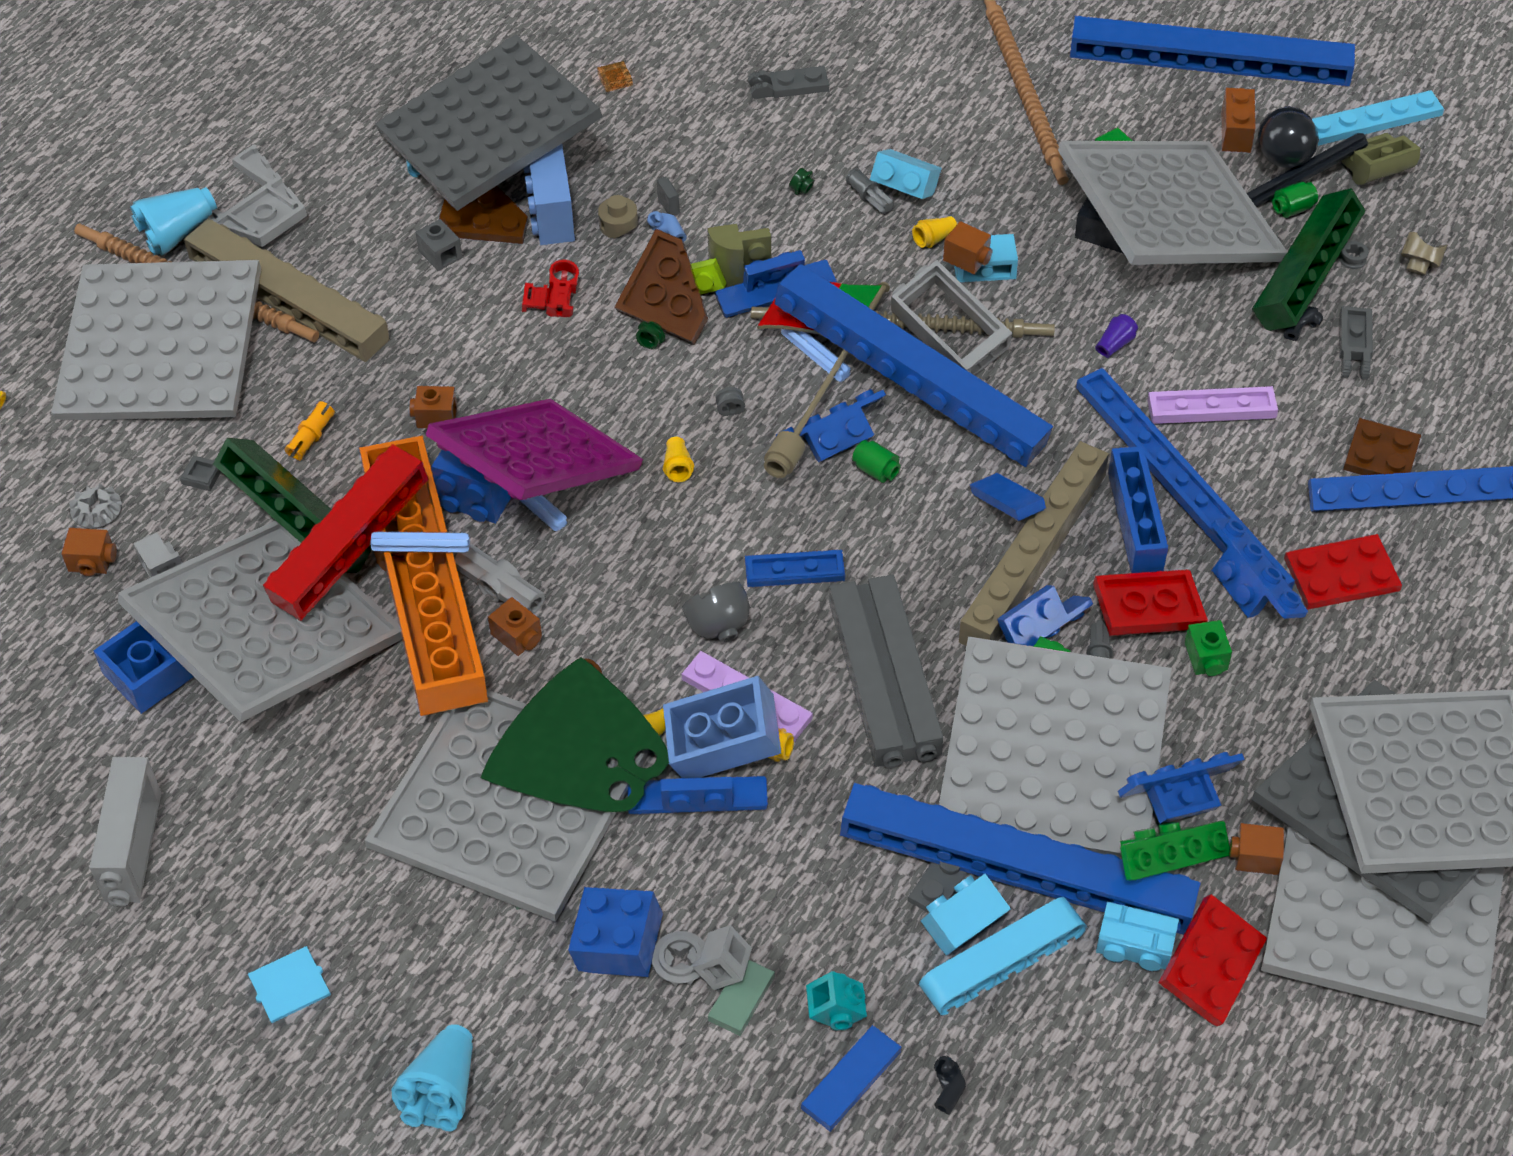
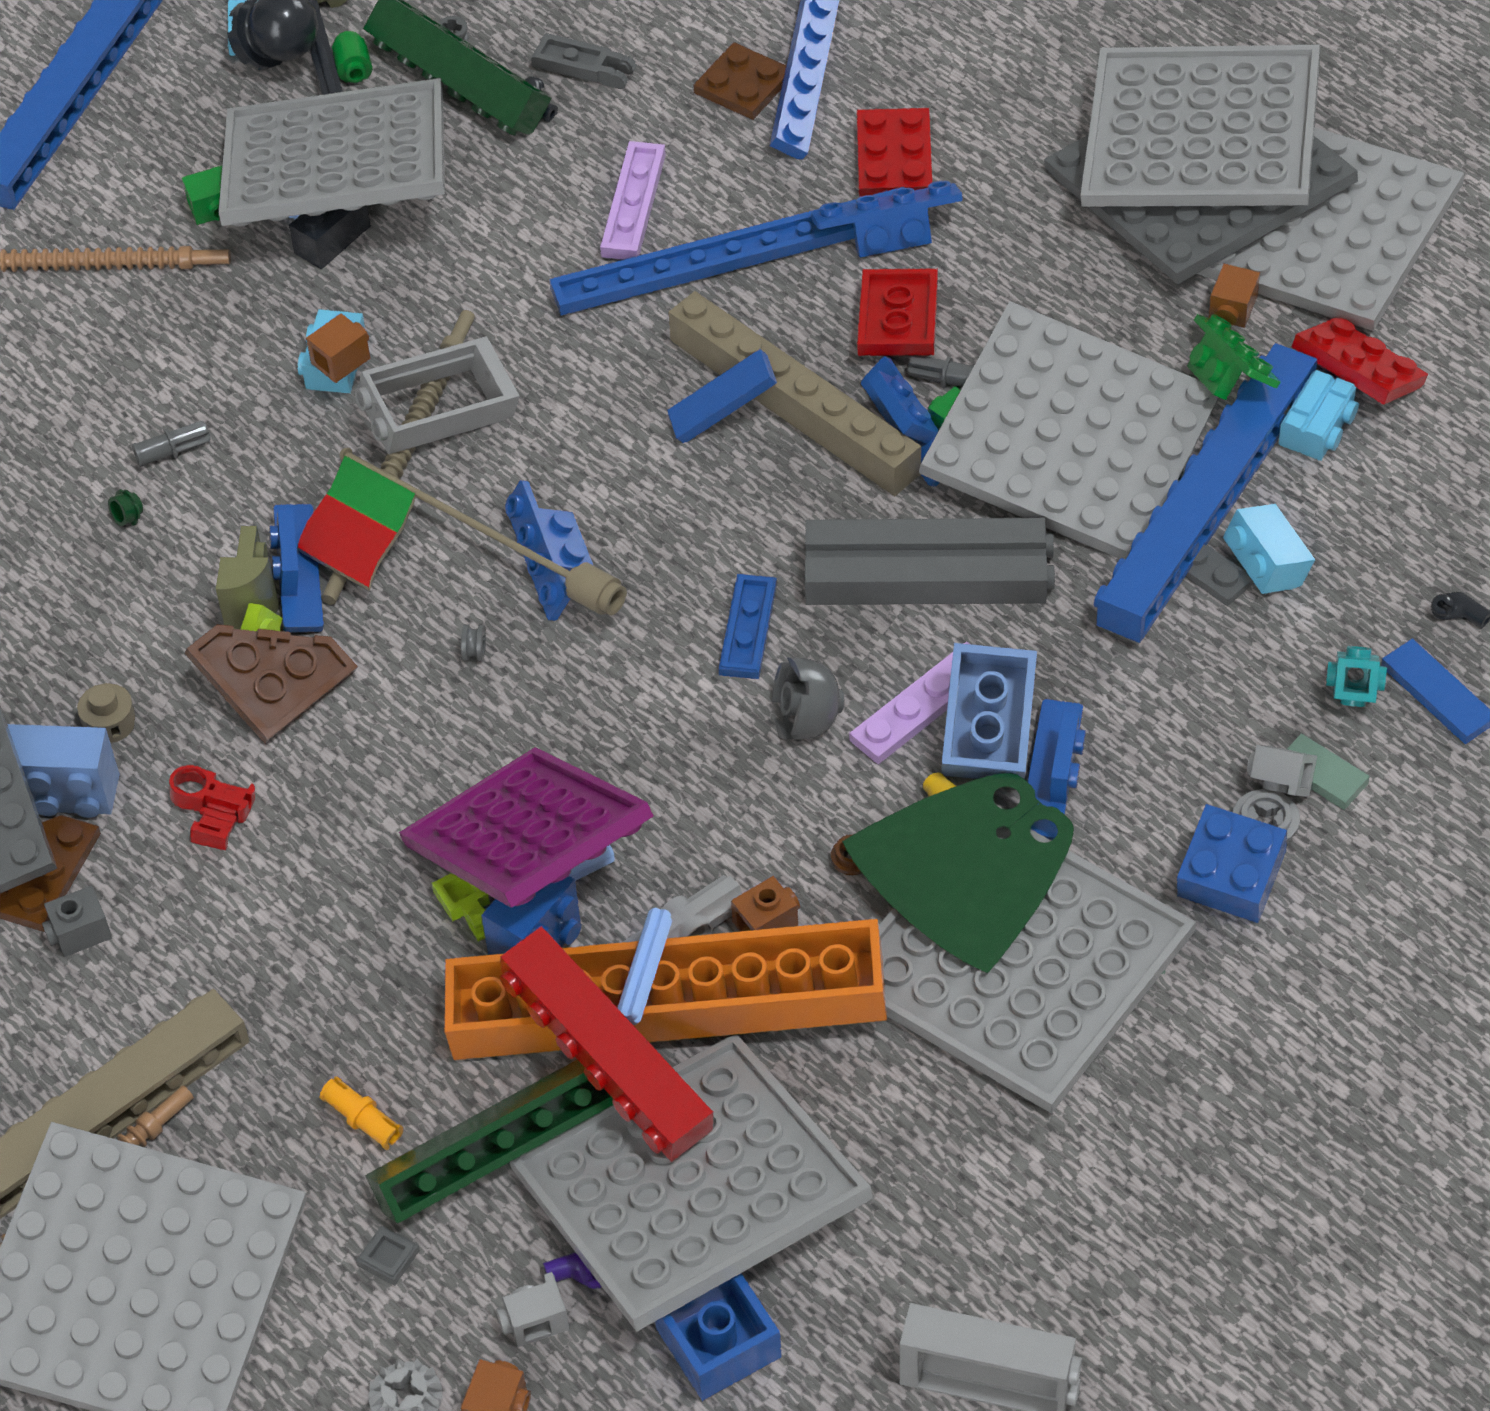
camera: 75 degrees left, 0 degrees up
(289, 984) = (1224, 1219): medium azure piece -> none
(433, 405) = (374, 958): dark orange brick -> none
(437, 1081) = (1393, 1060): medium azure cone -> none
(650, 332) = (327, 705): dark green plate -> none
(666, 223) = (139, 662): medium blue arm -> none
(668, 196) = (95, 651): dark grey tile -> none
(677, 462) = (548, 711): yellow cone -> none
(817, 352) = (423, 544): light blue axle -> none
(876, 461) = (617, 514): green brick -> none
(905, 173) = (166, 396): medium azure brick -> none
(913, 365) = (491, 445): blue brick -> none
(932, 231) = (266, 395): yellow cone -> none
(1001, 954) = (1322, 530): medium azure beam -> none
(1117, 334) = (498, 256): dark purple cone -> none
(1137, 510) = (775, 289): blue brick -> none
(1182, 790) = (1152, 334): blue bracket -> none
(1208, 648) = (973, 278): green brick -> none
(1238, 120) = (207, 73): dark orange brick -> none

